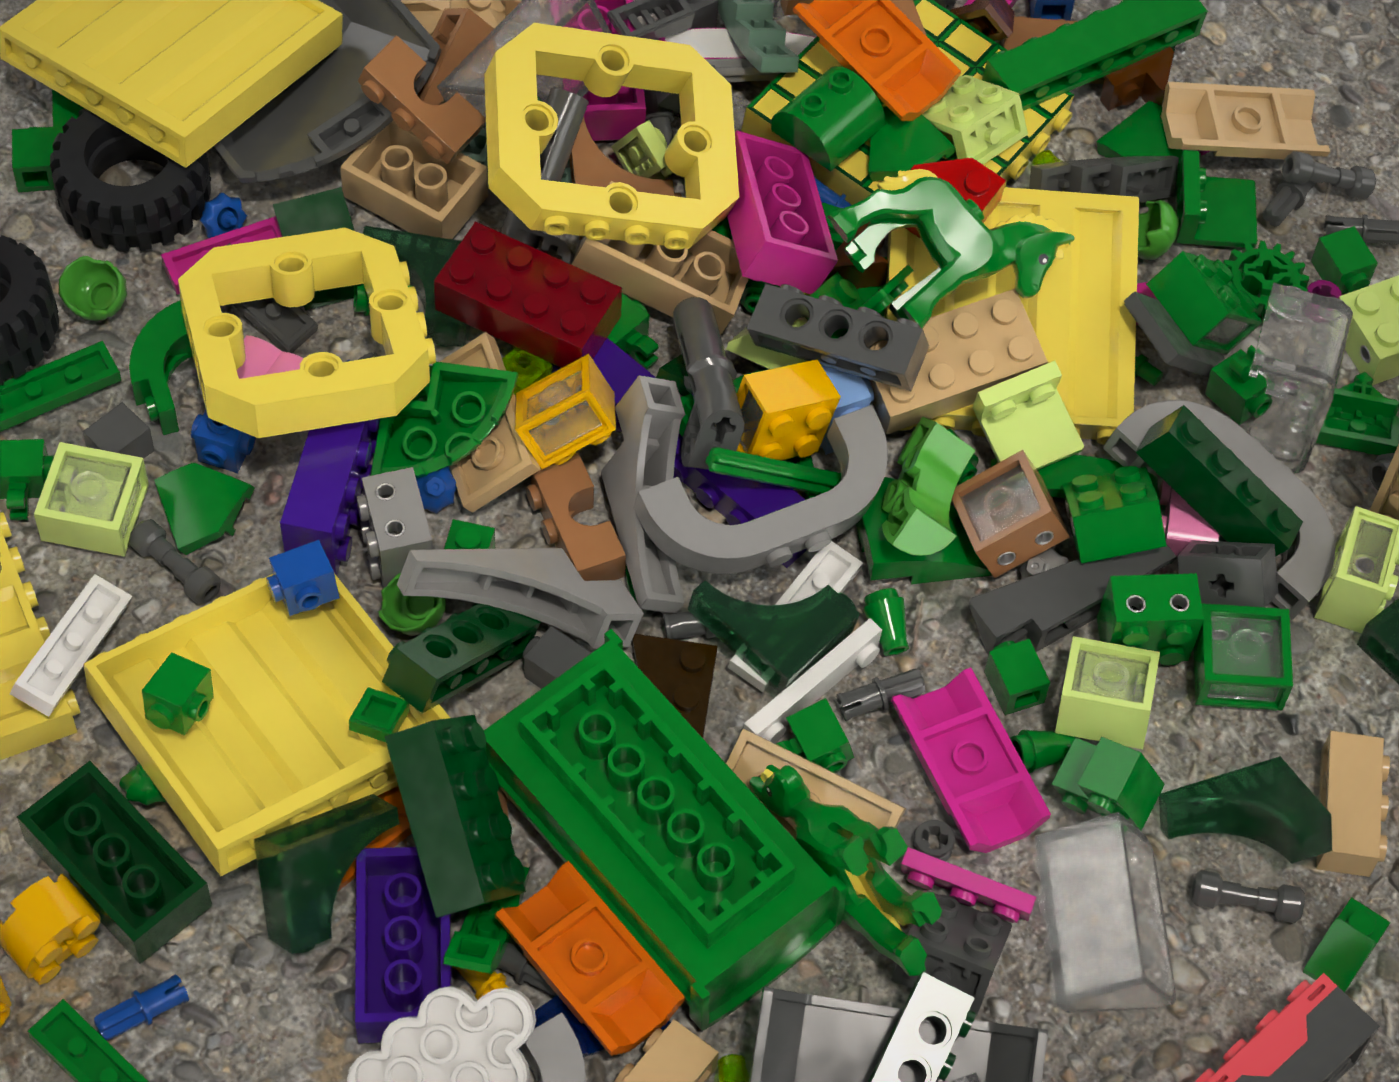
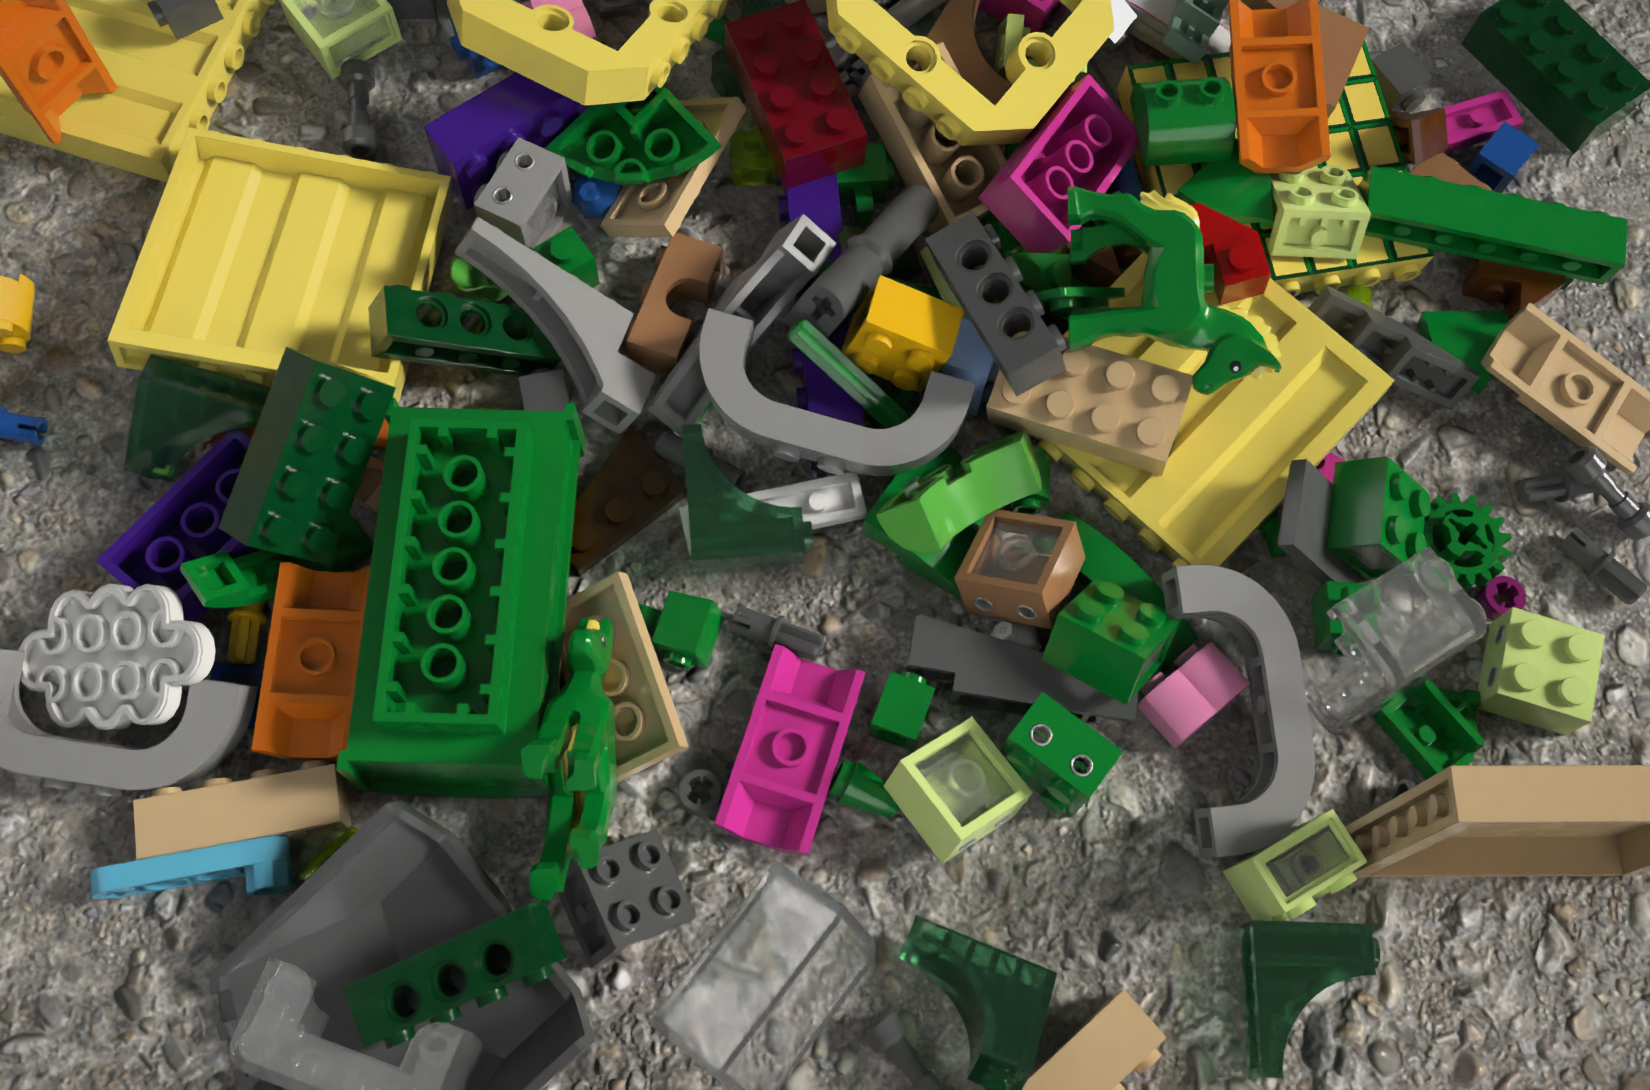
camera: 40 degrees right, 10 degrees up
(70, 645) = (216, 108): white plate -> none
(115, 861) = (72, 295): dark green brick -> none
(178, 694) = (210, 199): green brick -> none
(201, 504) = (419, 80): green slope -> none
(302, 578) = (405, 184): blue brick -> none
(378, 714) = (343, 333): green tile -> none
(565, 412) = (733, 205): yellow piece -> none
(857, 649) = (791, 581): white plate -> none
(888, 613) = (842, 577): green cone -> none
(967, 886) = (683, 854): dark pink plate -> none
(1028, 417) = (1114, 500): yellowish green bracket -> none
(1108, 781) = (875, 871): green brick -> none
(1156, 230) = (1395, 424): bright green hair -> none
(1213, 208) = (1476, 444): green bracket -> none
(1217, 482) = (1224, 691): dark green brick -> none
(1232, 571) = (1166, 774): dark grey brick -> none
(1243, 657) = (1112, 856): piece -> none
(1344, 260) = (1555, 579): green brick -> none

